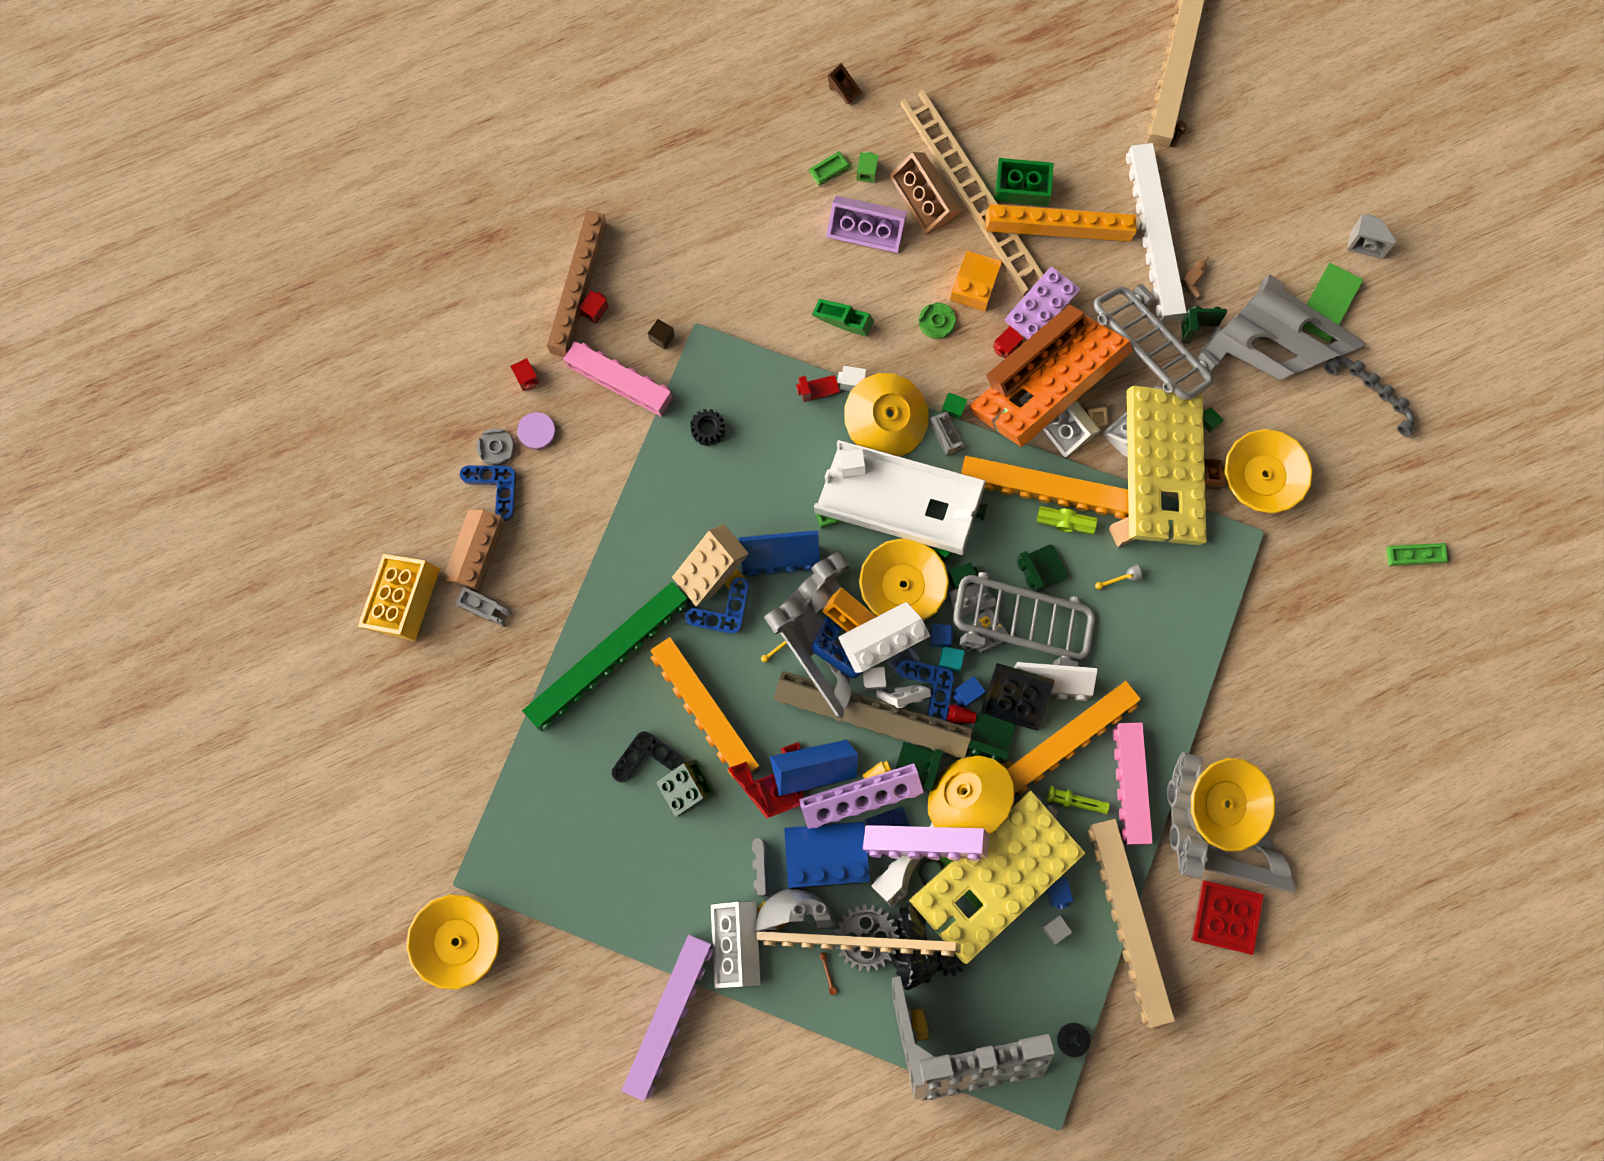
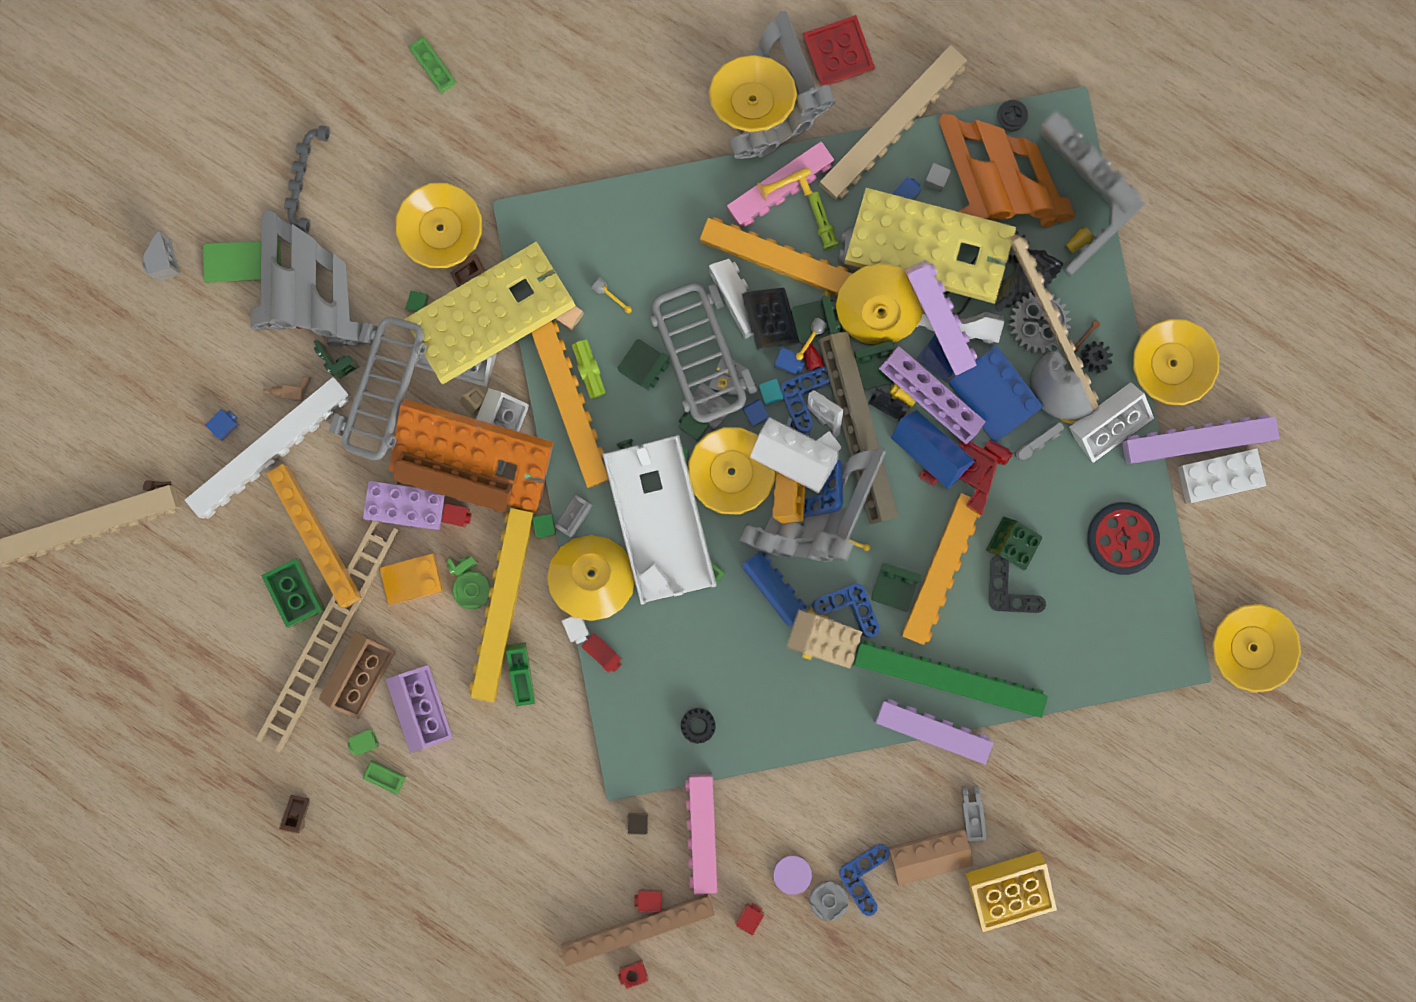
camera: 125 degrees left, 10 degrees up
(544, 267) = (639, 968): none -> red brick
(572, 614) = (933, 732): none -> lavender brick
(602, 875) = (1144, 522): none -> wedge
(623, 1015) = (1221, 476): none -> white brick
(715, 660) = (895, 587): none -> dark green bracket
(749, 1063) = (1194, 359): none -> yellow dish
(773, 824) = (999, 451): none -> red cone
(796, 968) = (1102, 352): none -> black gear
(876, 754) = (884, 402): none -> black hinge
(909, 335) = (502, 605): none -> yellow brick
(962, 324) = (464, 565): none -> bright green bracket
(983, 734) = (817, 327): none -> hinge
(1014, 976) = (997, 186): none -> orange panel
(1131, 802) = (799, 175): none -> yellow piece
(1198, 208) = (222, 424): none -> blue brick

